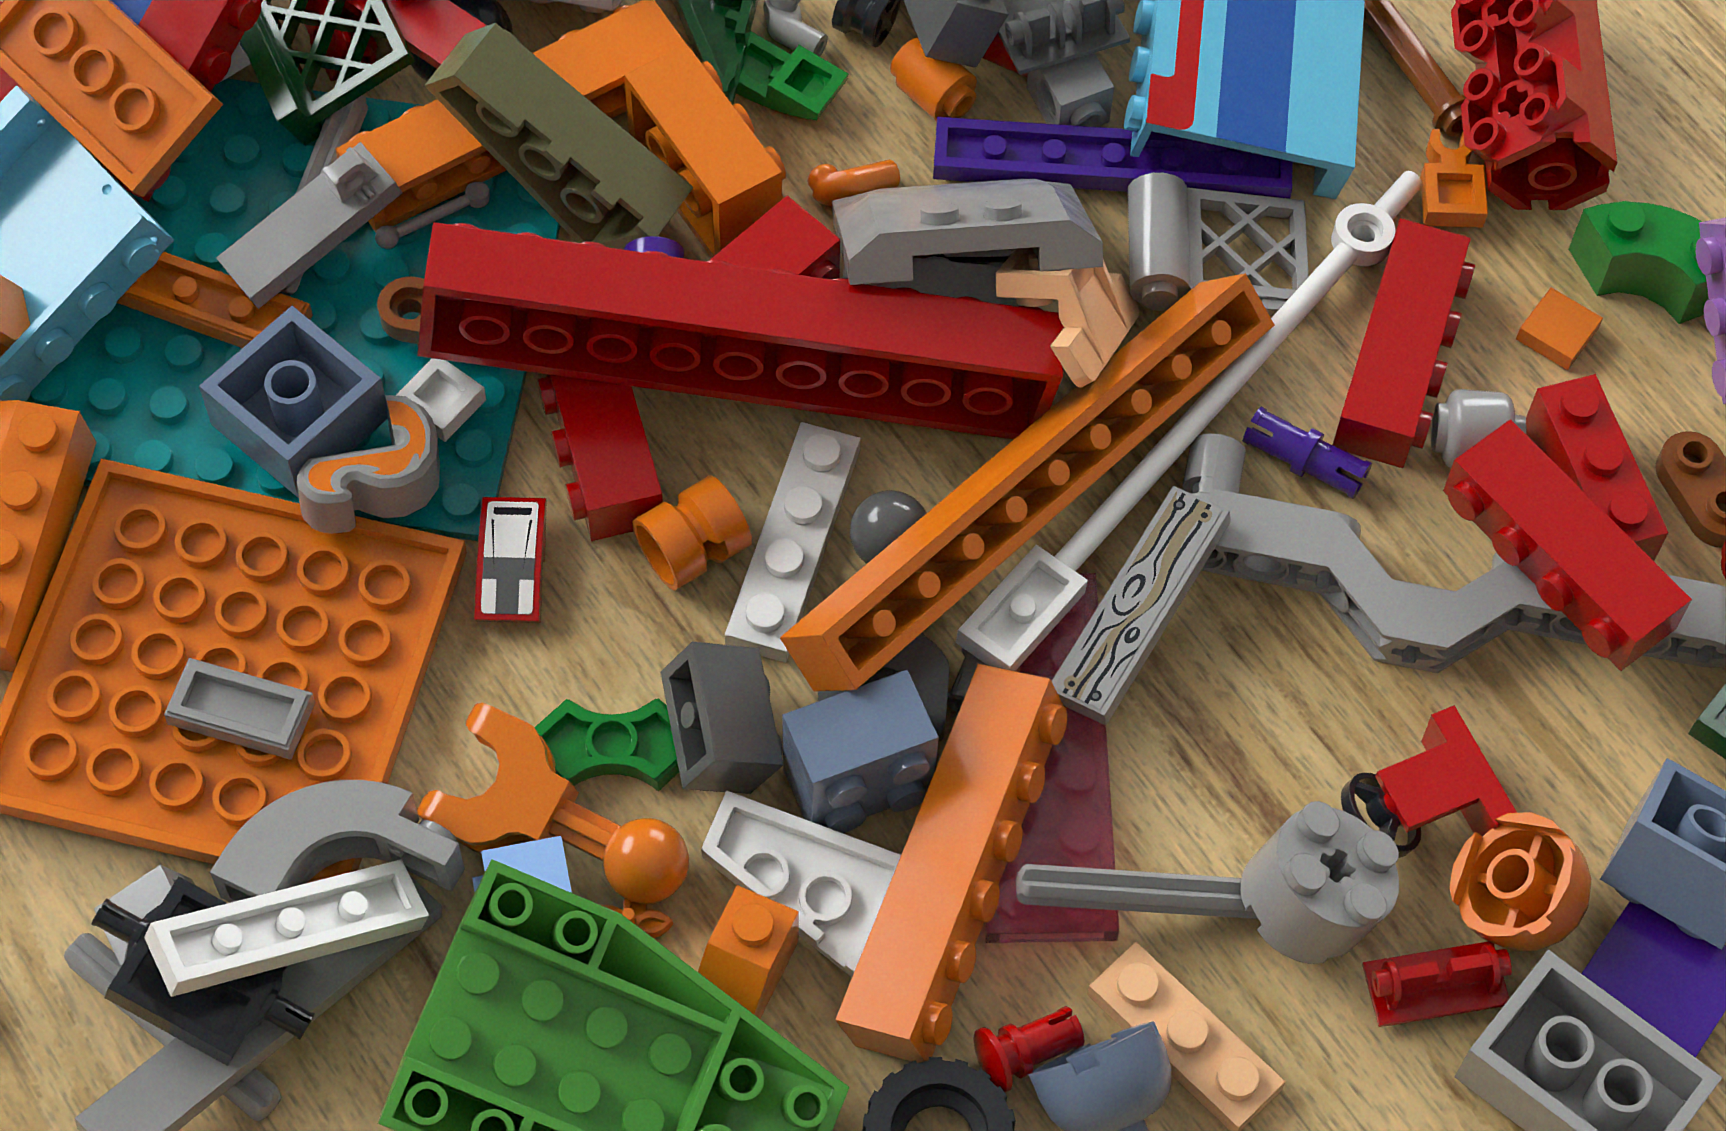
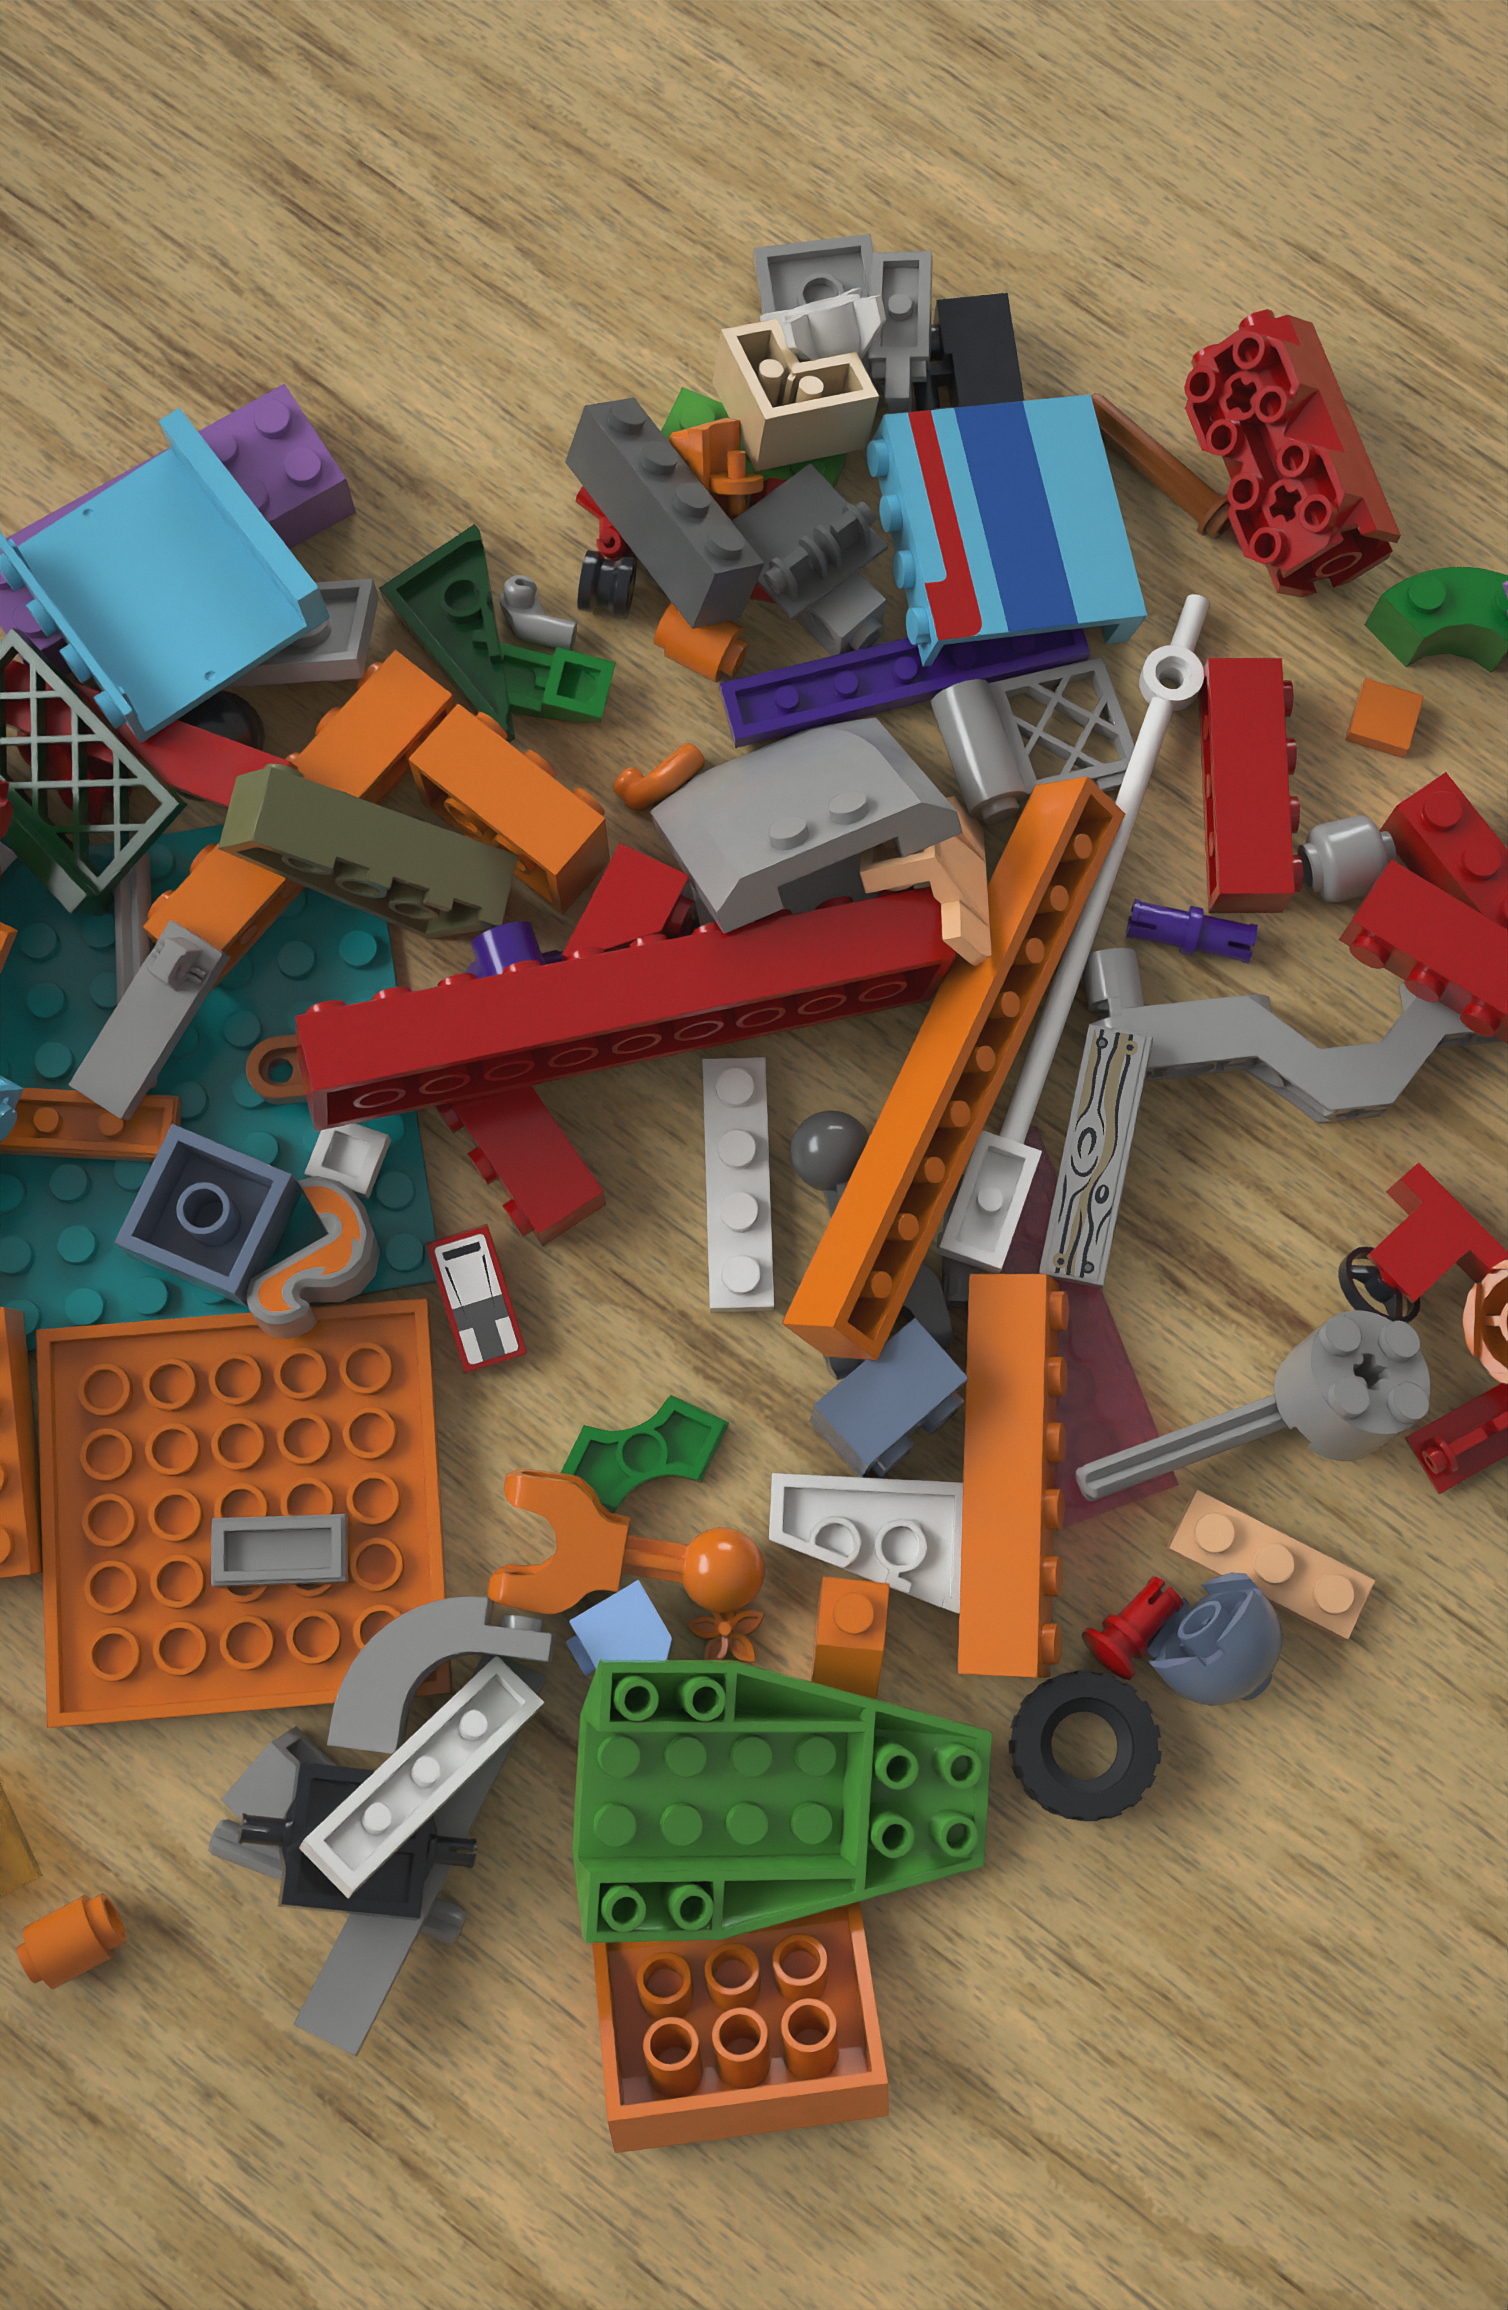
camera: 20 degrees left, 15 degrees up
(476, 195) = (295, 918): light grey hinge -> none
(687, 535) = (643, 1216): orange wheel -> none
(721, 718) = (741, 1402): dark grey brick -> none
(1451, 187) = (1238, 598): orange plate -> none

